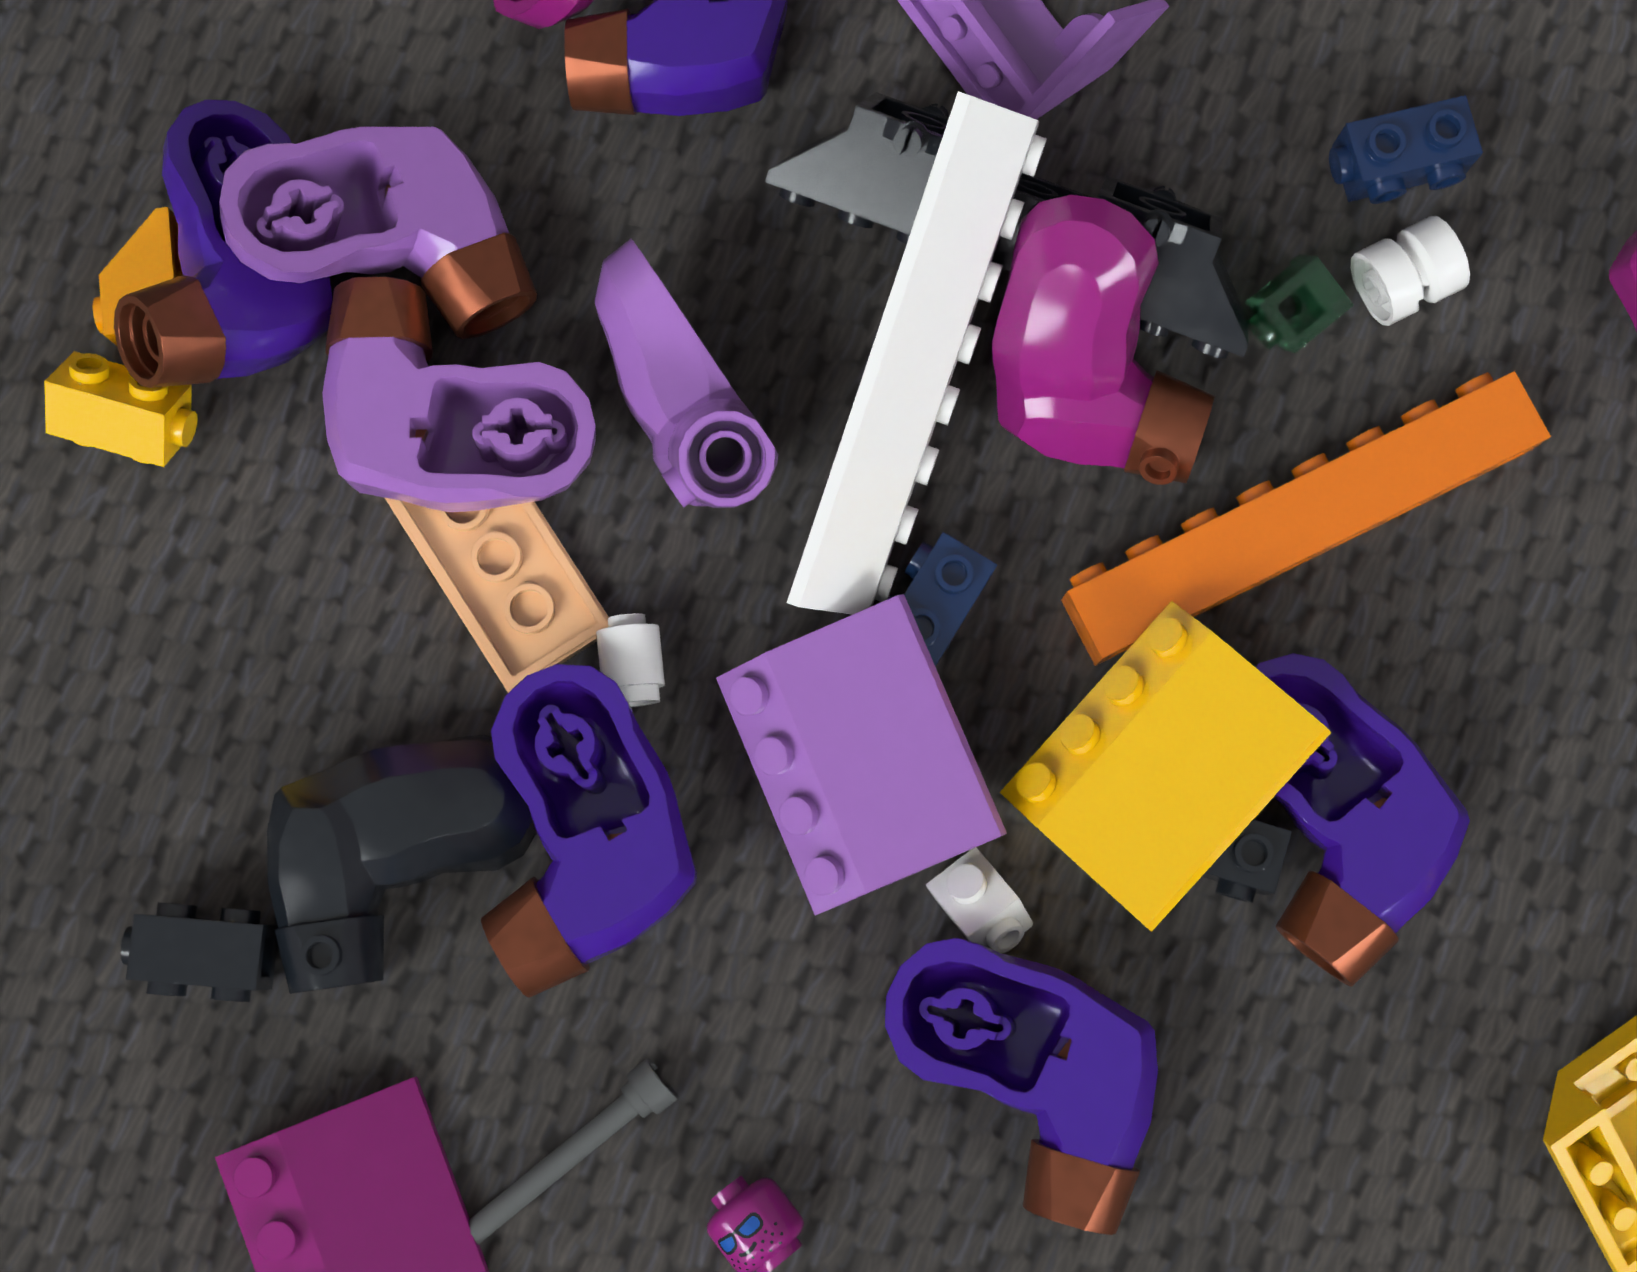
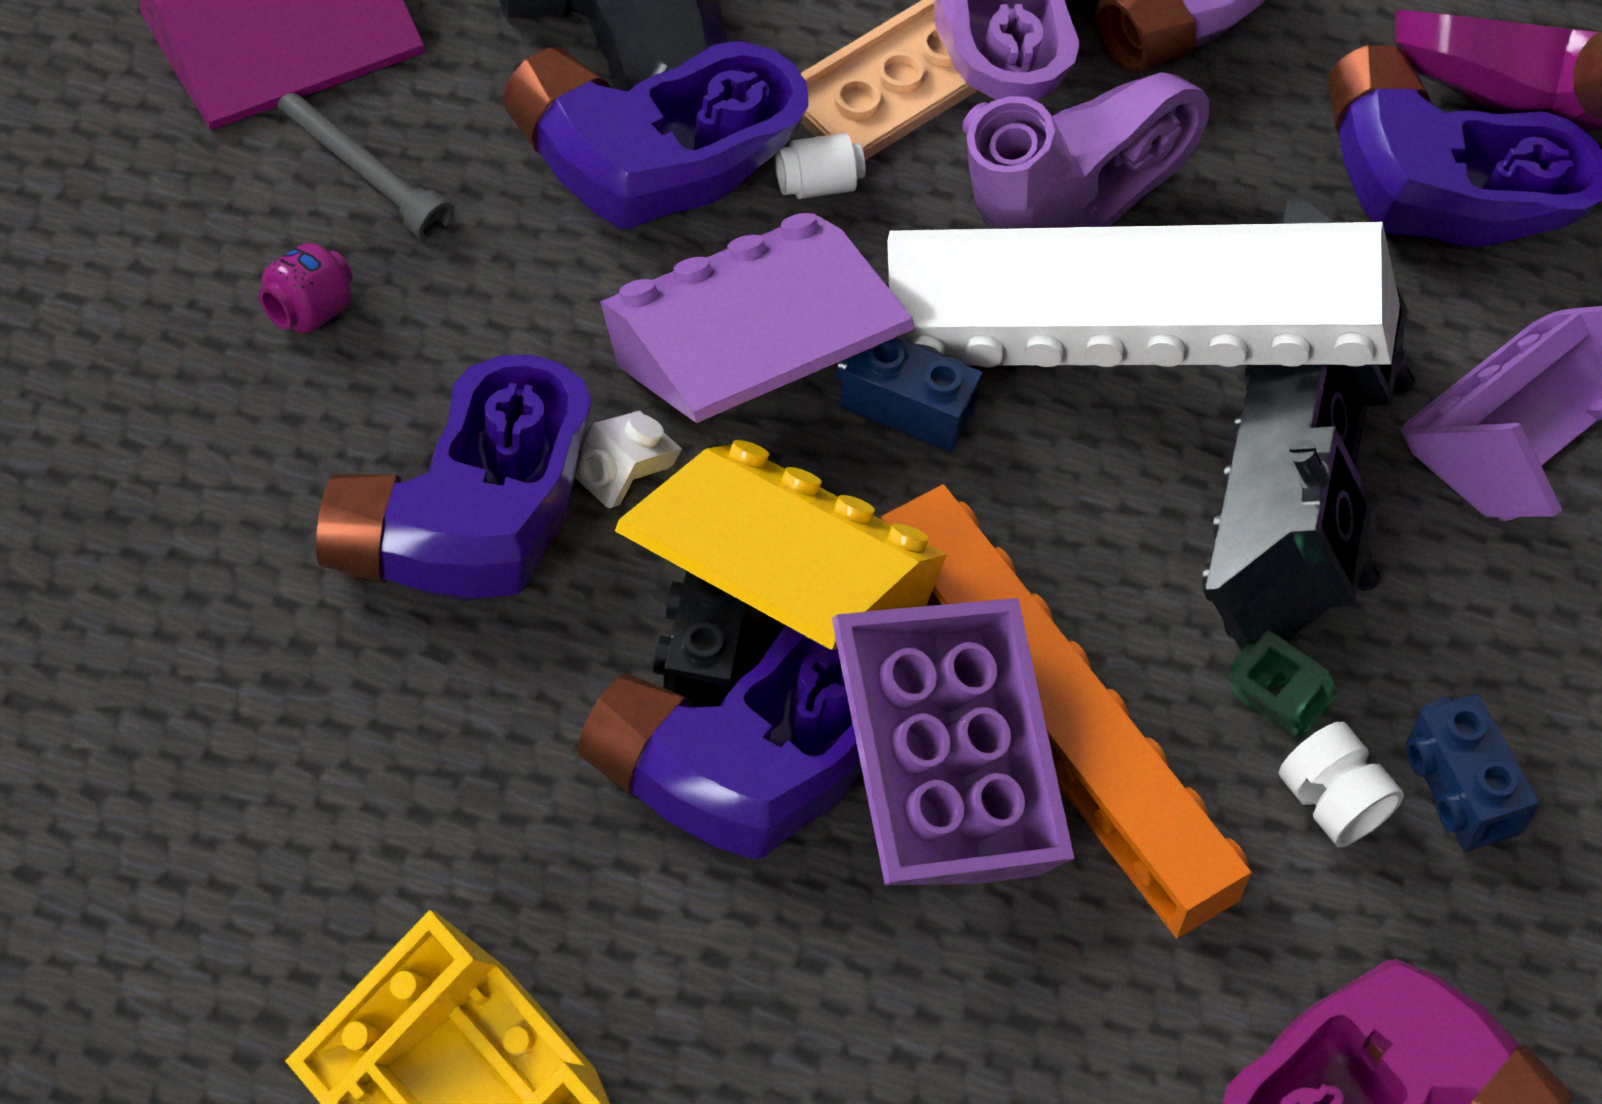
camera: 75 degrees right, 25 degrees down
(1071, 344) = (1174, 457): magenta piece -> none
(1397, 628) = (952, 743): none -> medium lavender slope

